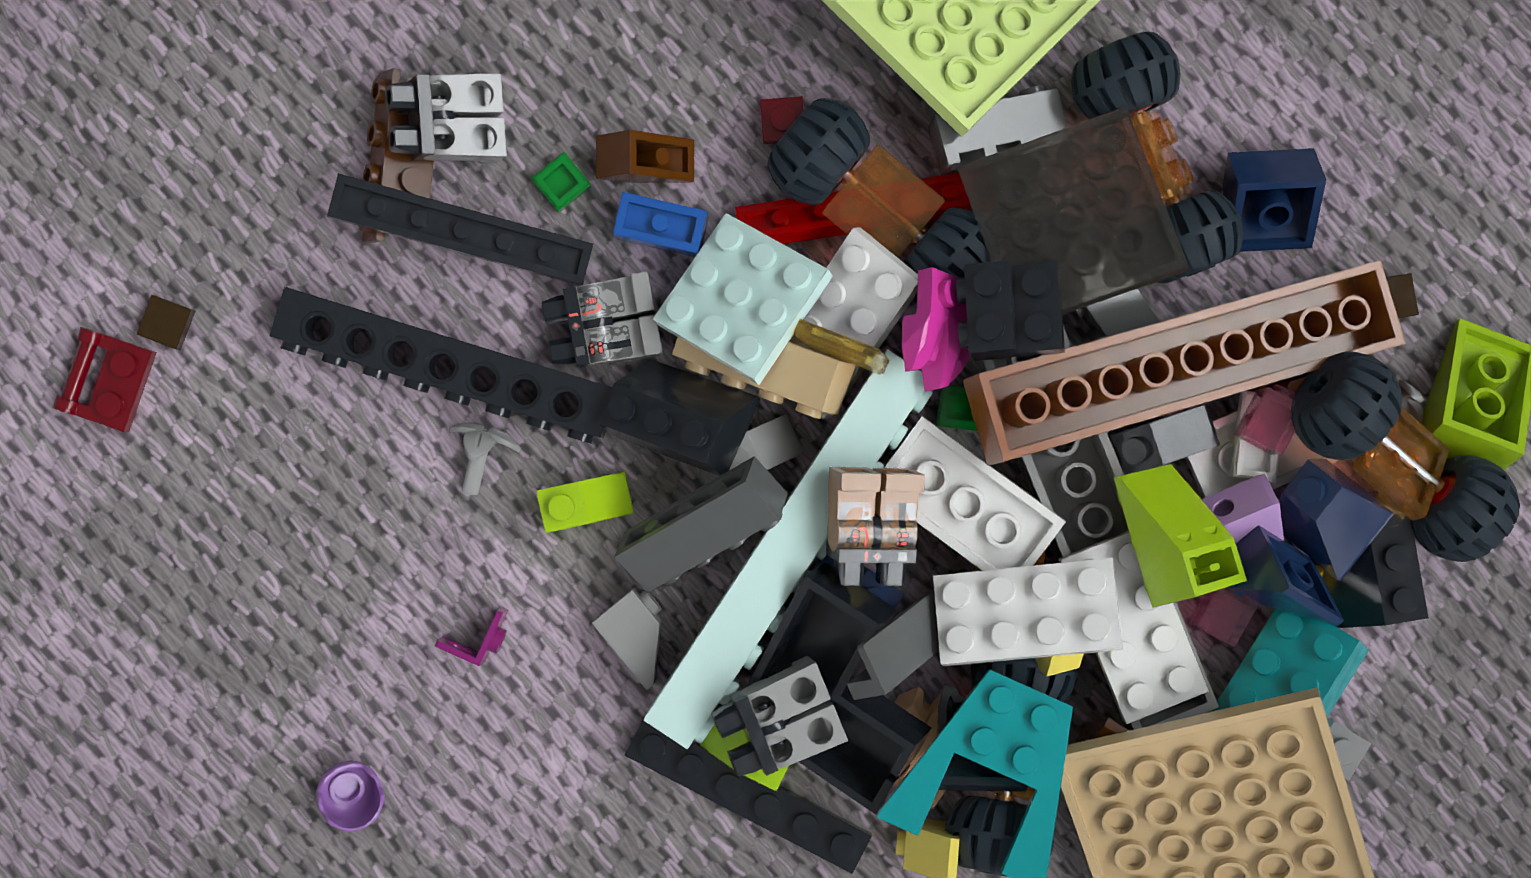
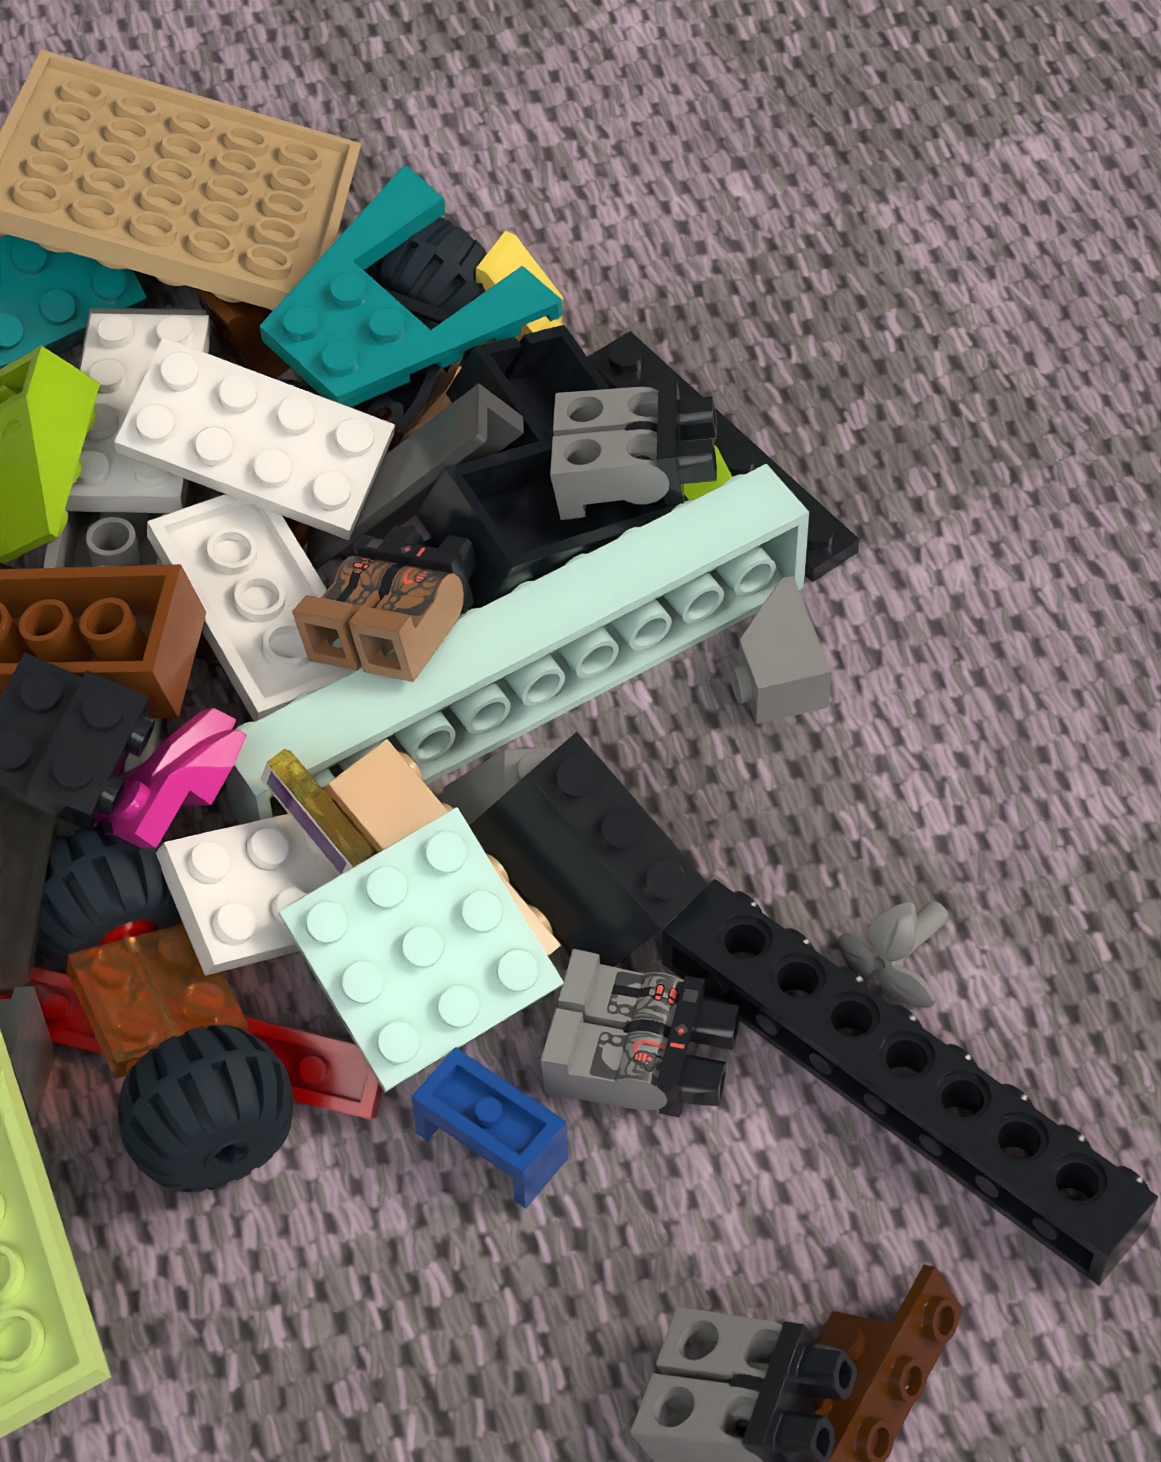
camera: 155 degrees left, 35 degrees down
(459, 229) = (803, 1231): black plate -> none
(492, 642) = (1003, 707): magenta bracket -> none
(561, 182) = (612, 1265): green tile -> none
(585, 502) = (779, 829): lime slope -> none
(644, 157) = (471, 1233): reddish brown slope -> none
(702, 525) = (623, 706): dark grey brick -> none
(778, 116) = (236, 1217): dark red plate -> none

